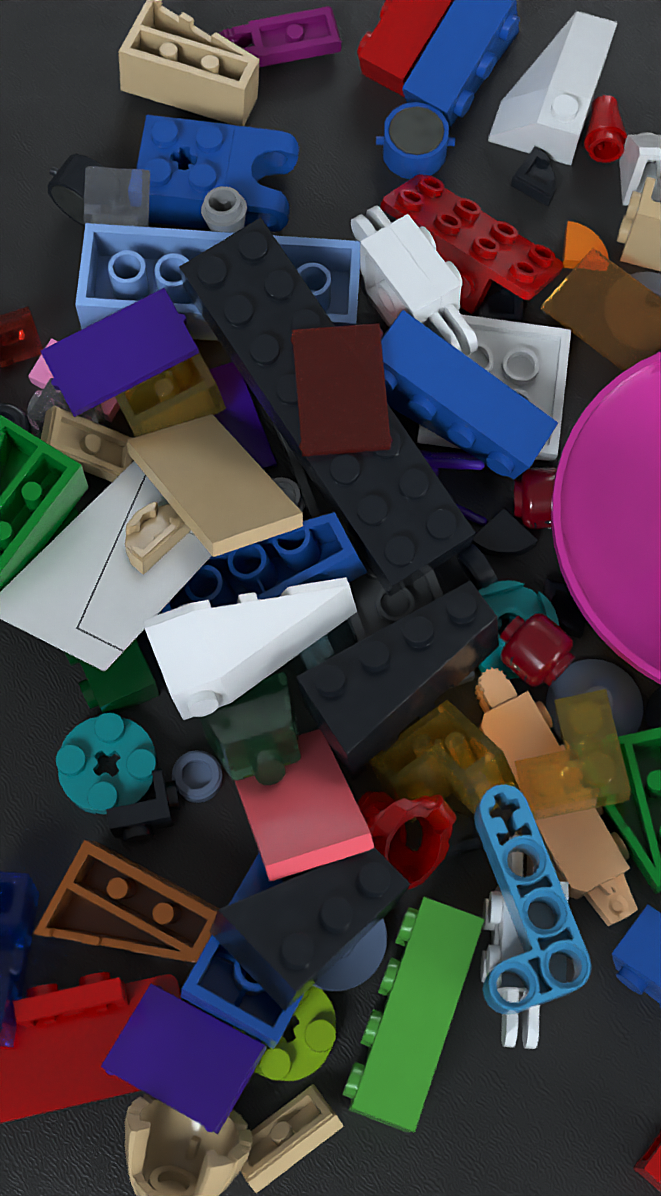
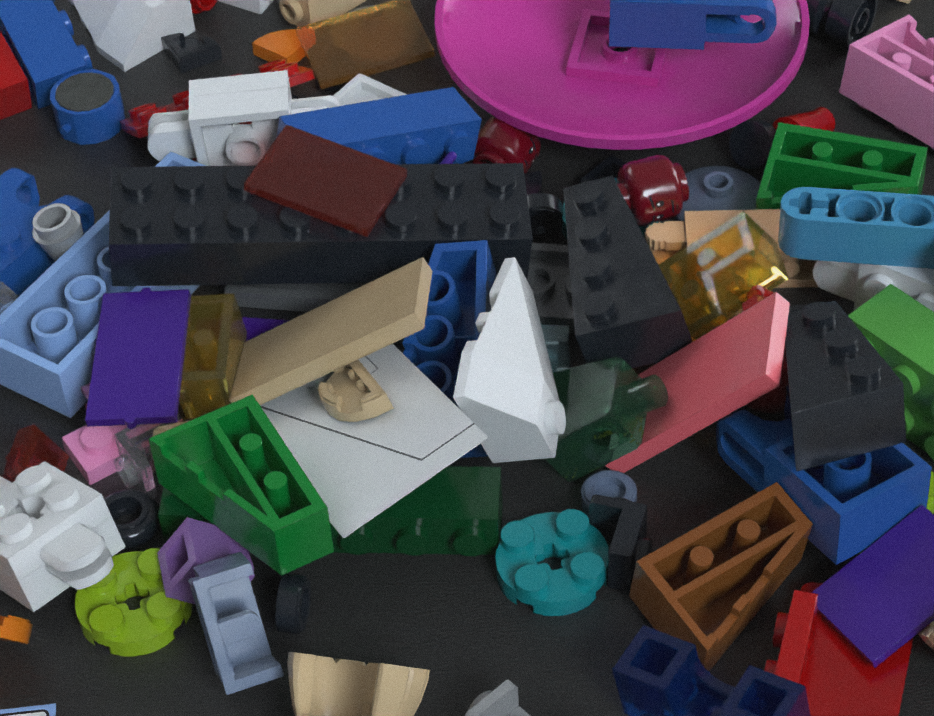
camera: 55 degrees left, 25 degrees down
(587, 771) = (766, 162): clear yellow brick -> none

